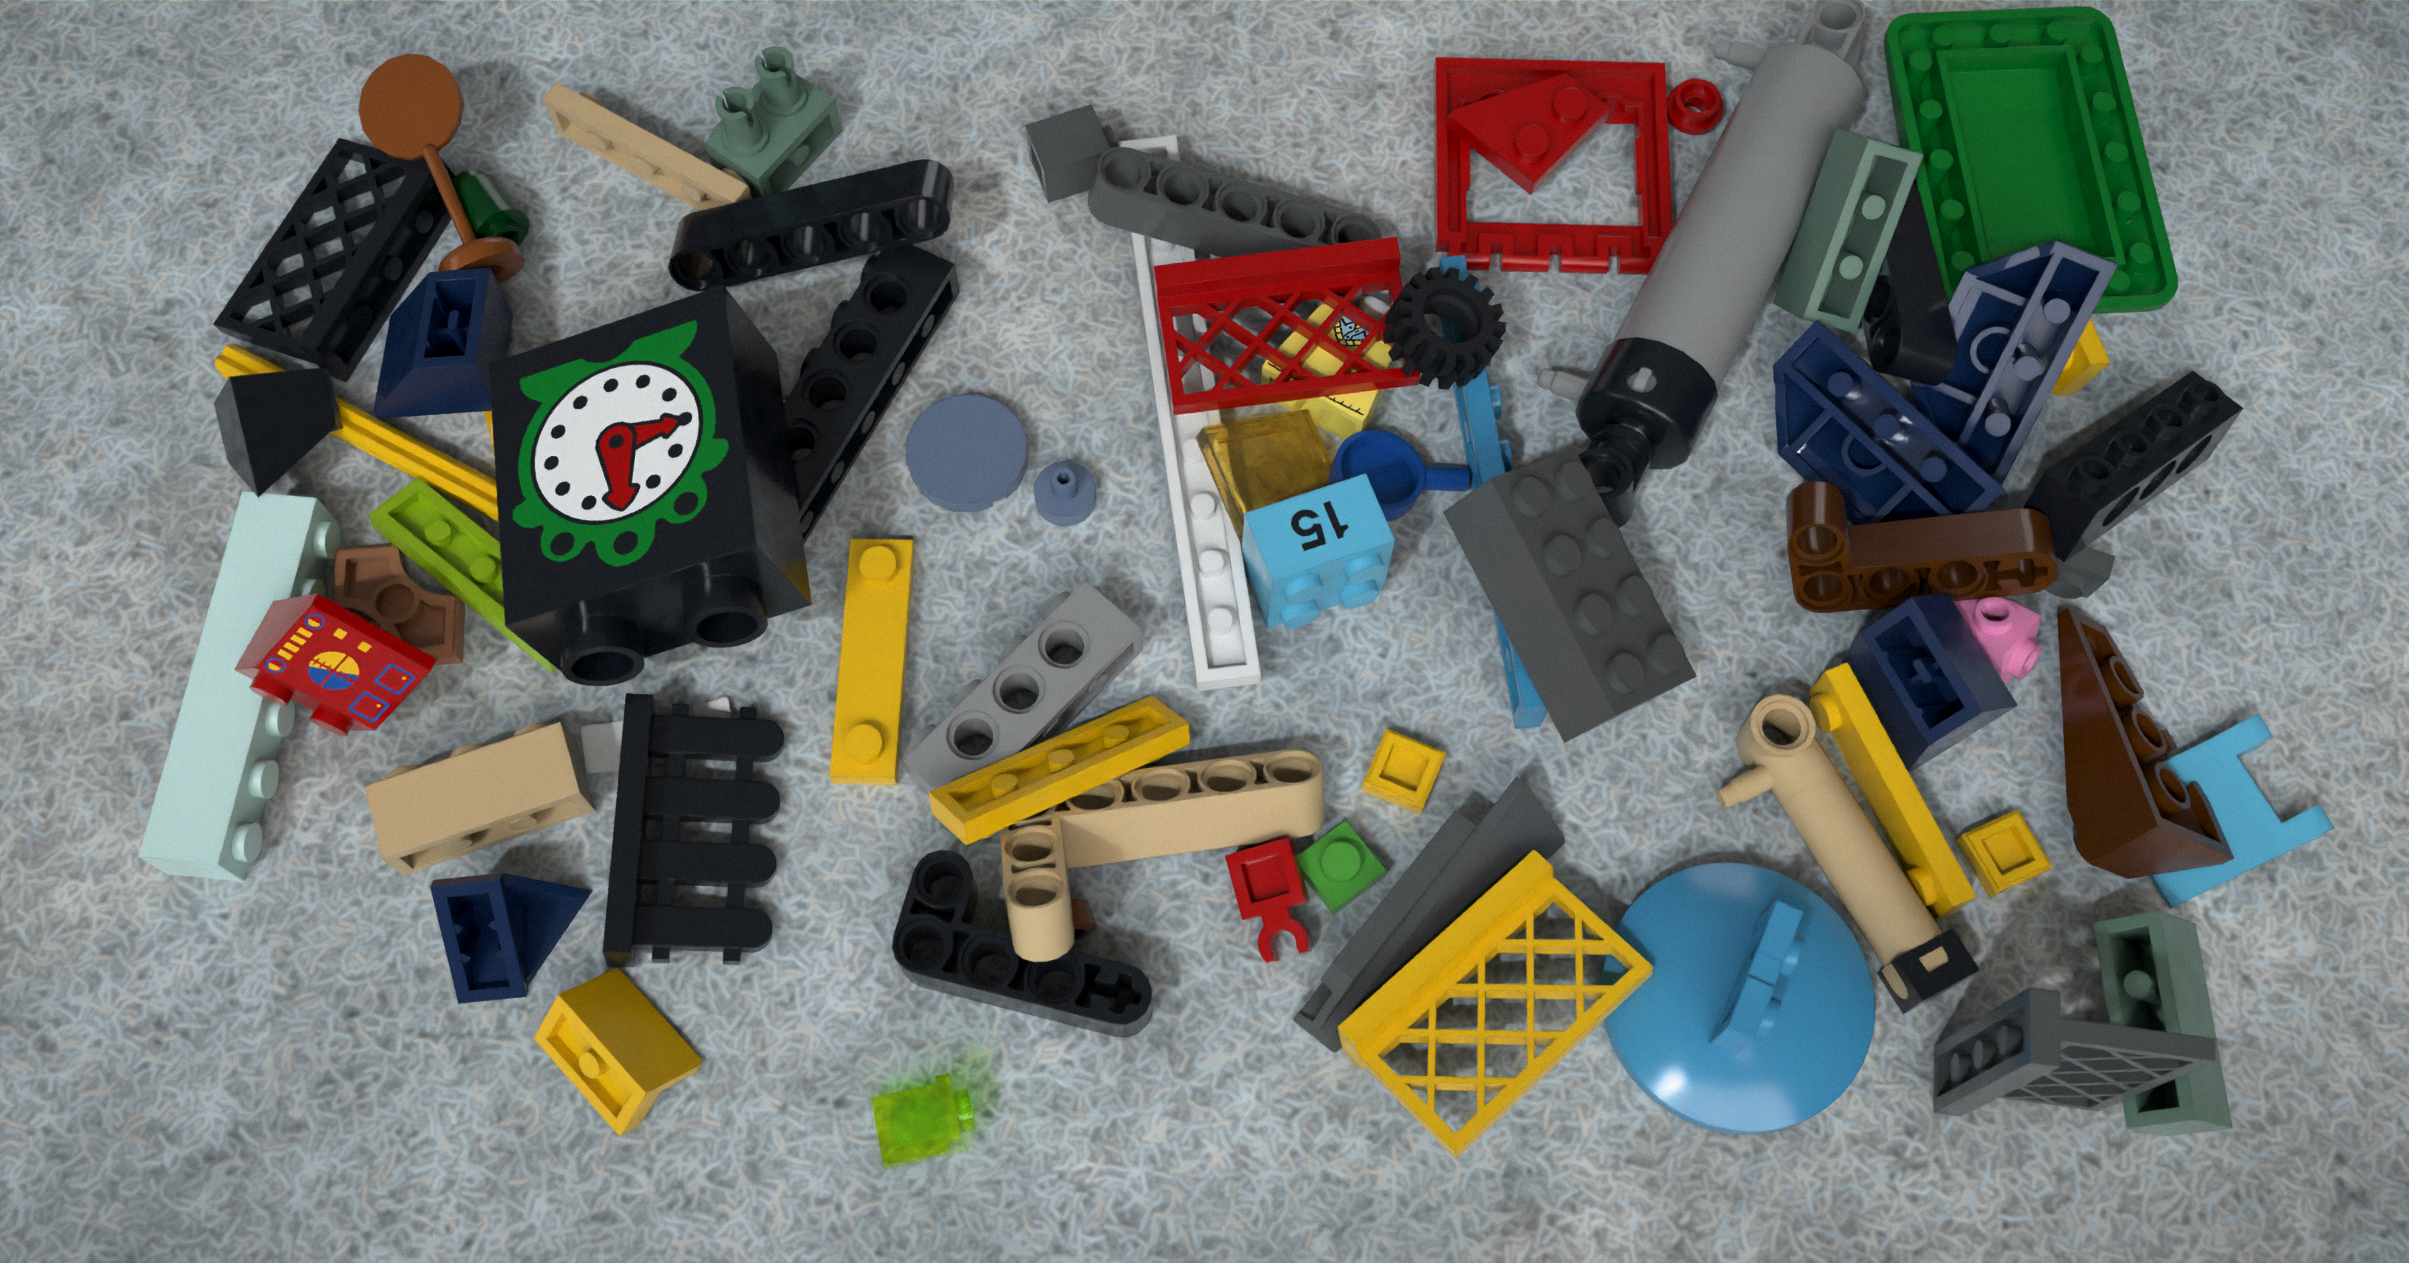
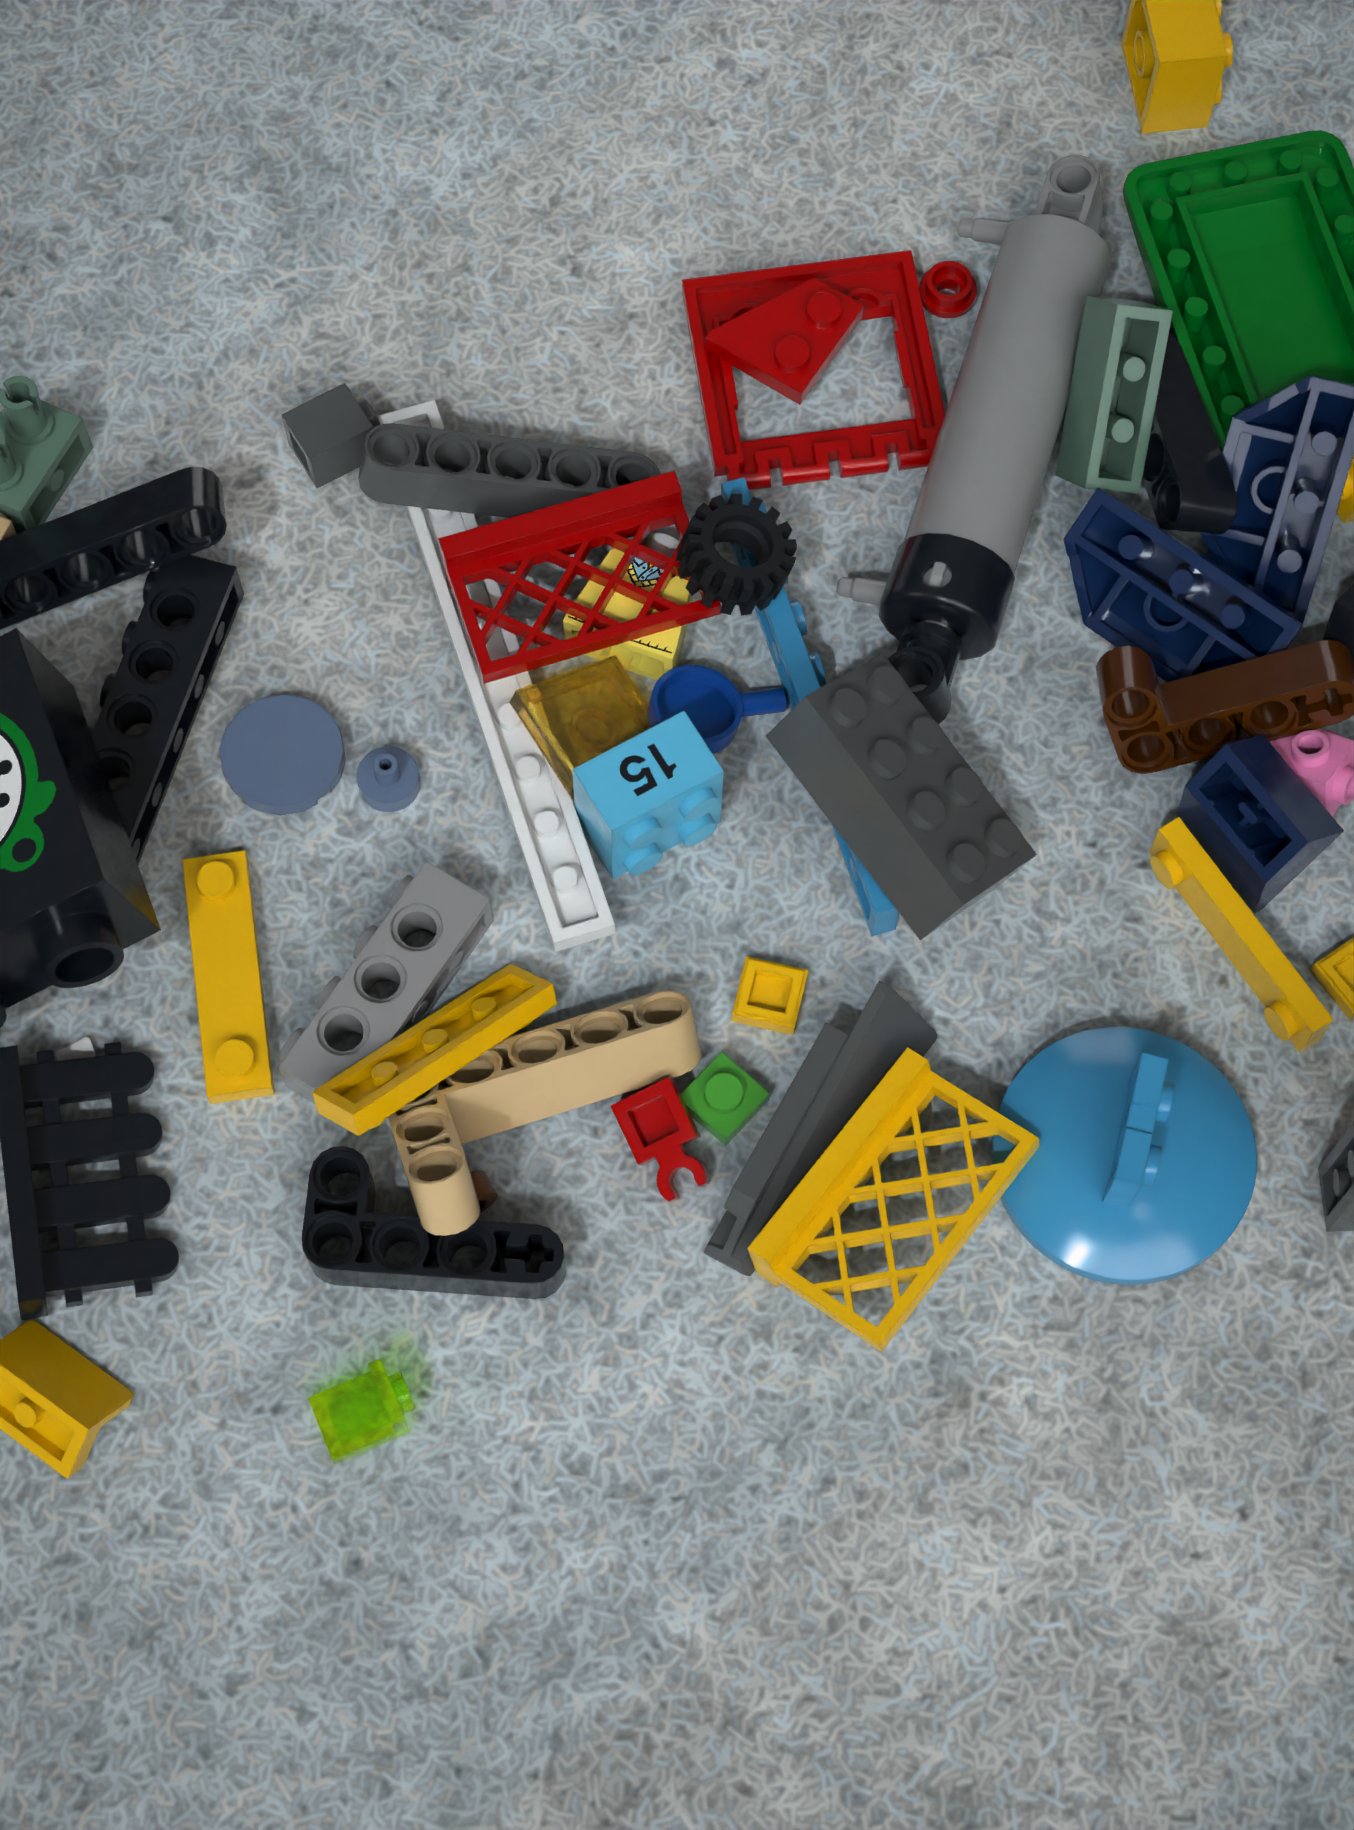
camera: 10 degrees left, 0 degrees up
(1850, 852) = (1229, 1020): tan piece -> none

